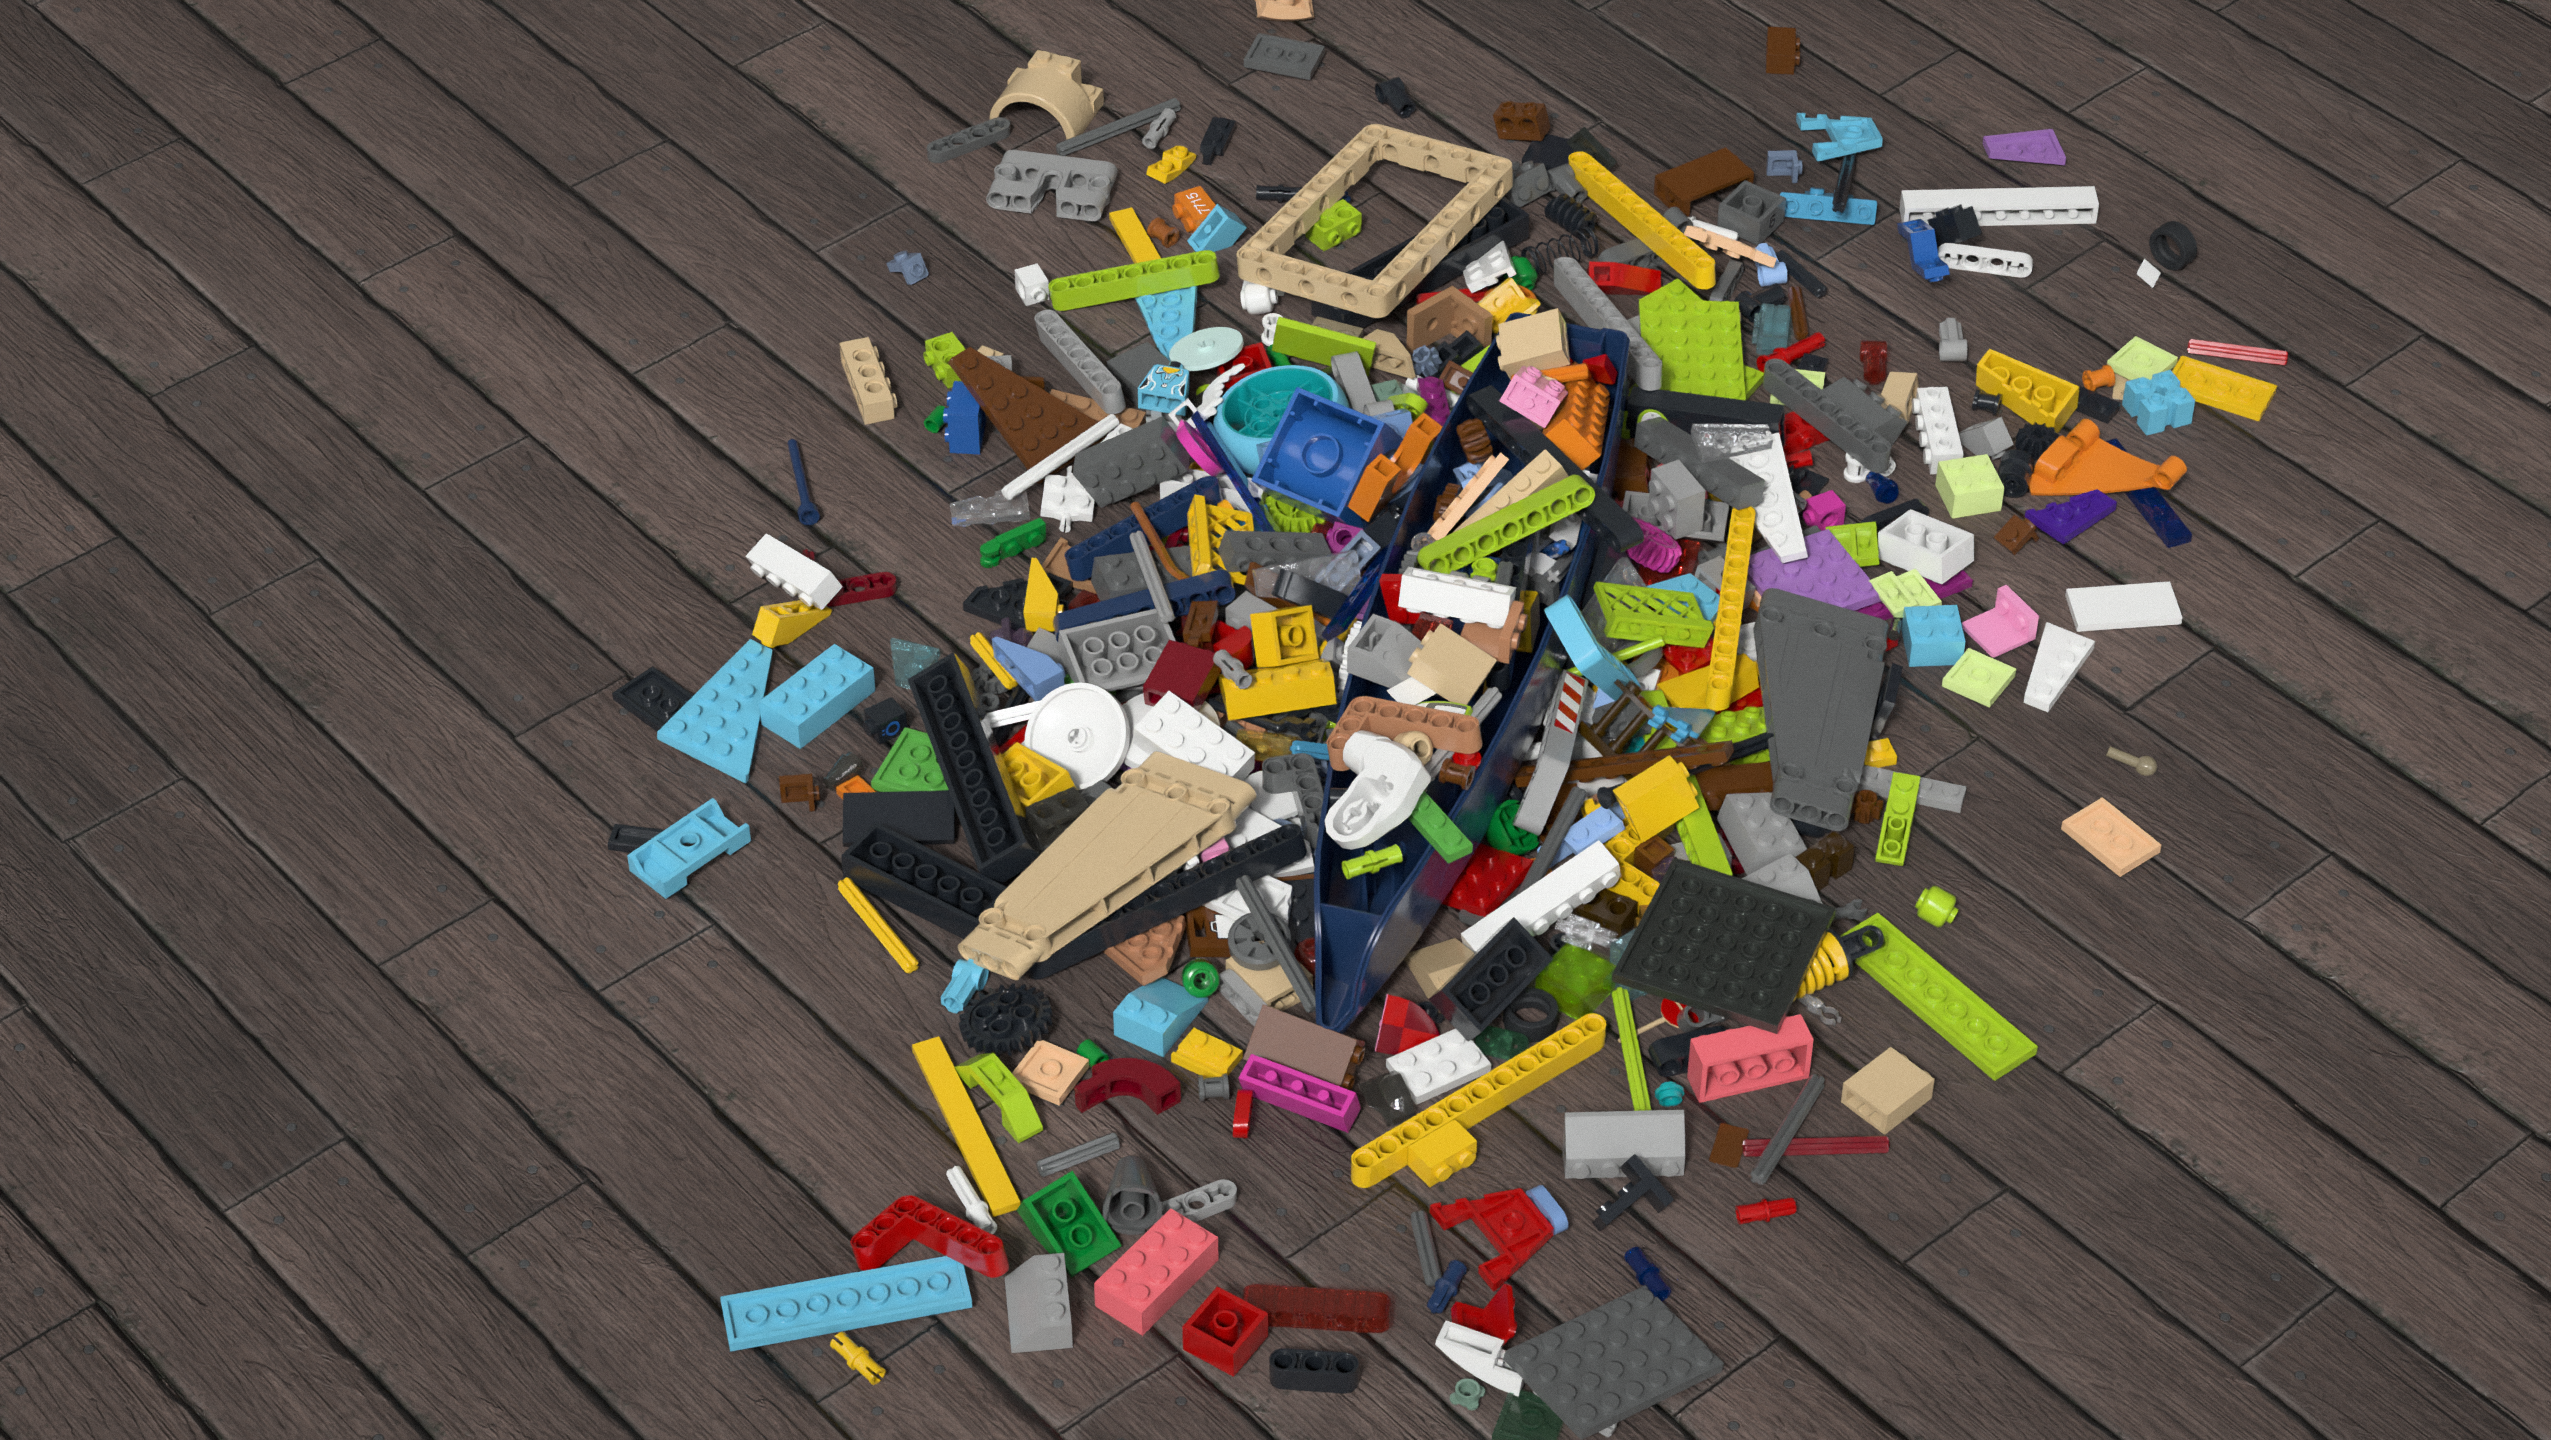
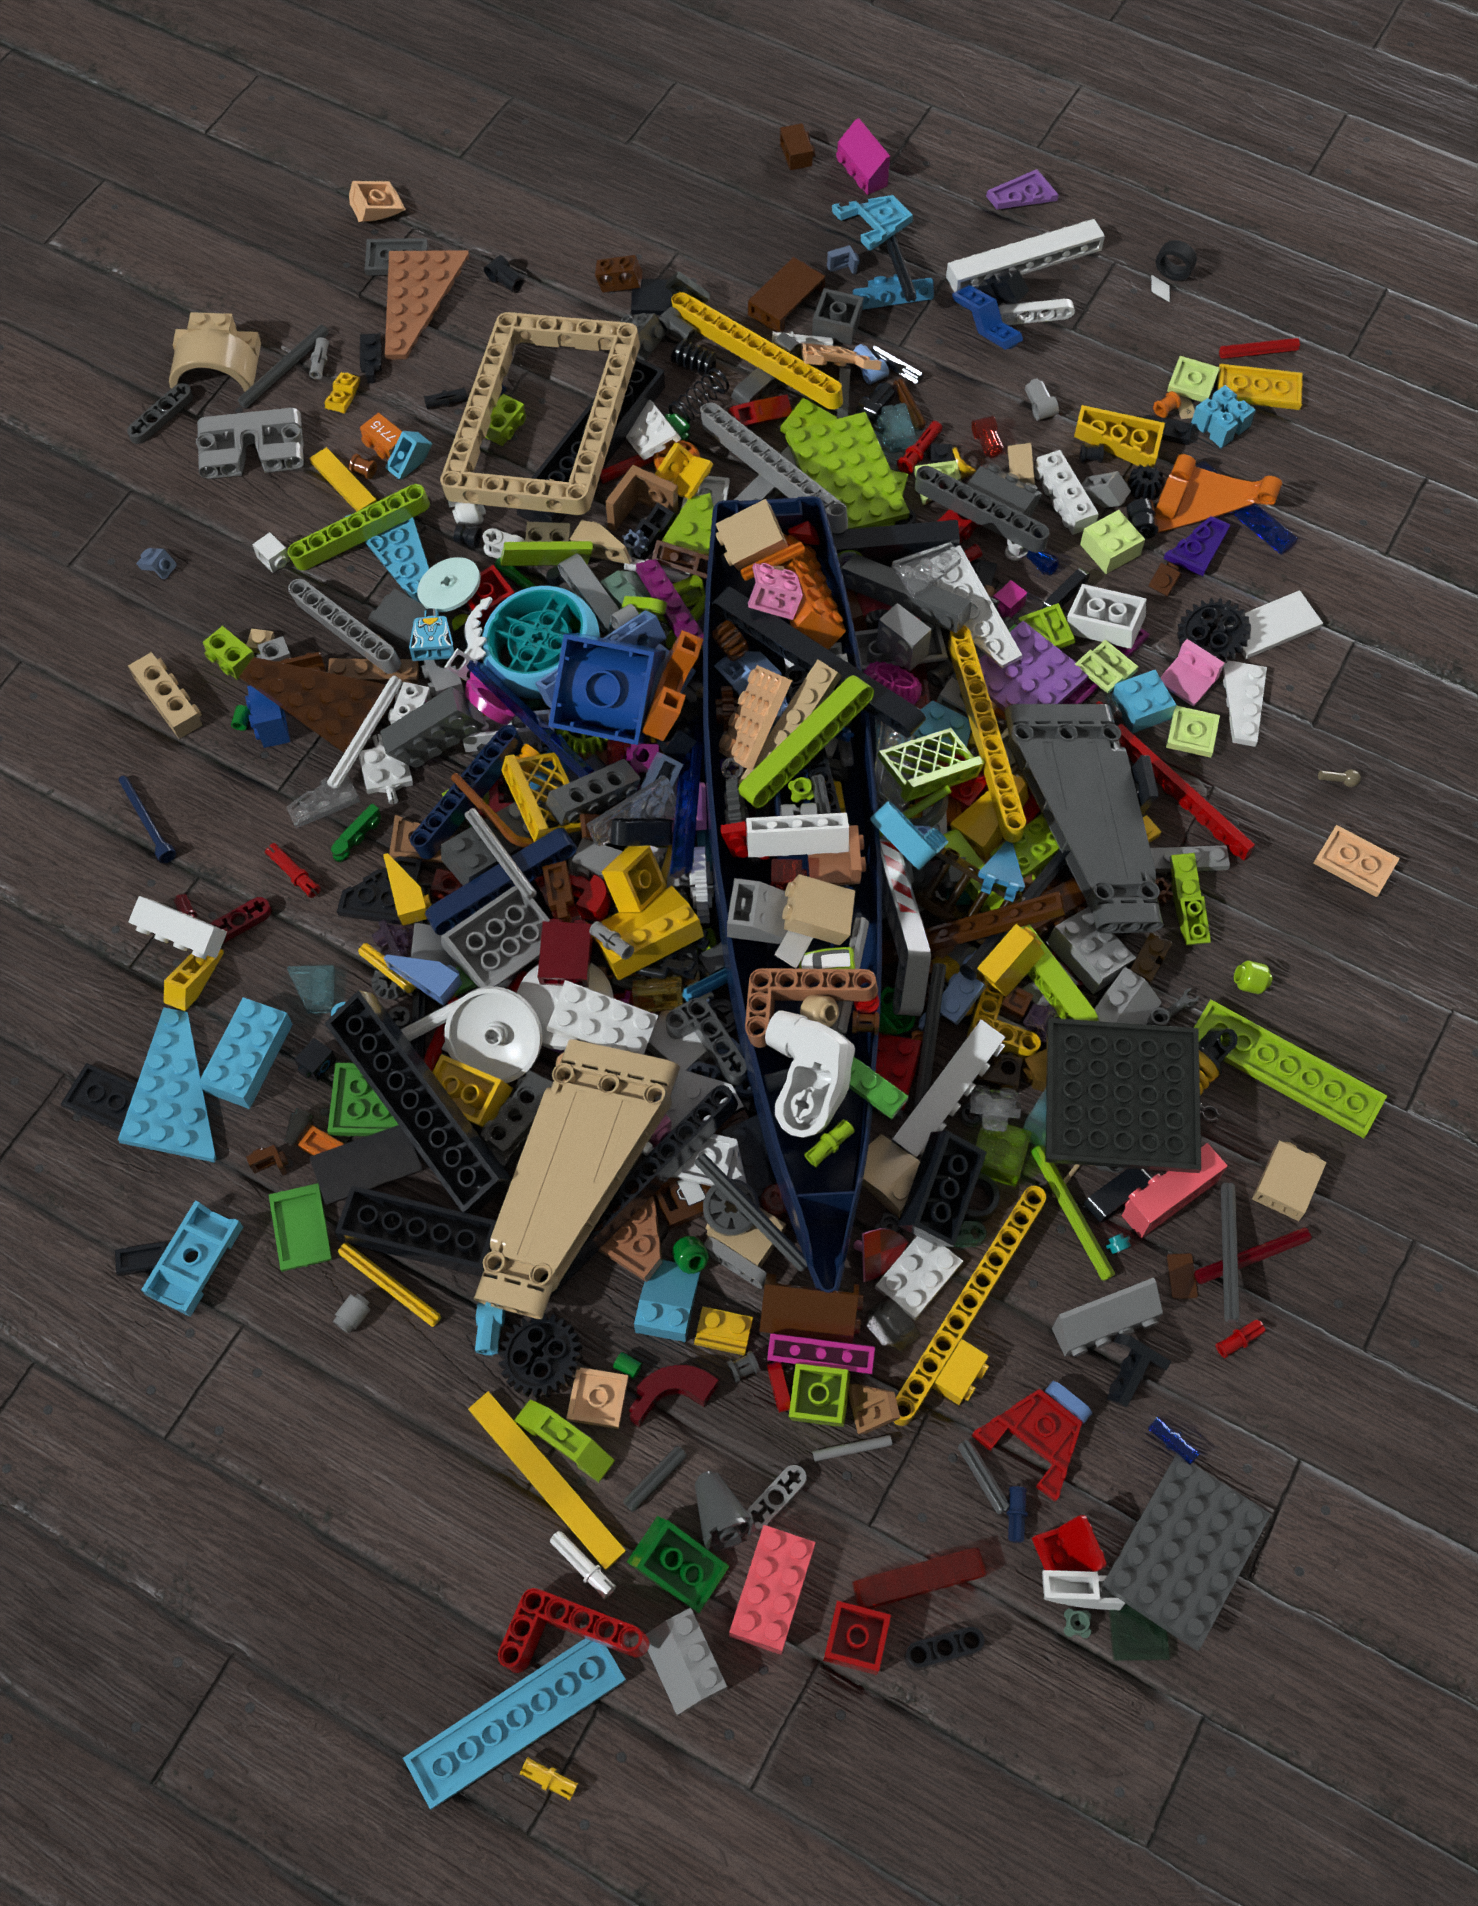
camera: 20 degrees left, 20 degrees up
(808, 855) = (300, 1227): none -> bright green piece
(829, 935) = (351, 1313): none -> light grey brick
(936, 565) = (298, 876): none -> red pin
(1248, 316) = (467, 534): none -> black wheel
(1281, 1126) = (819, 1395): none -> lime brick
(1288, 91) = (414, 293): none -> nougat wing
(1297, 1188) = (852, 1448): none -> light grey bar
(1332, 1152) = (872, 1407): none -> medium nougat wing
(1827, 372) = (965, 469): none -> yellow piece
(1851, 75) = (864, 158): none -> dark pink slope
(1941, 731) = (1188, 798): none -> red plate
(2052, 590) = (1233, 637): none -> black gear

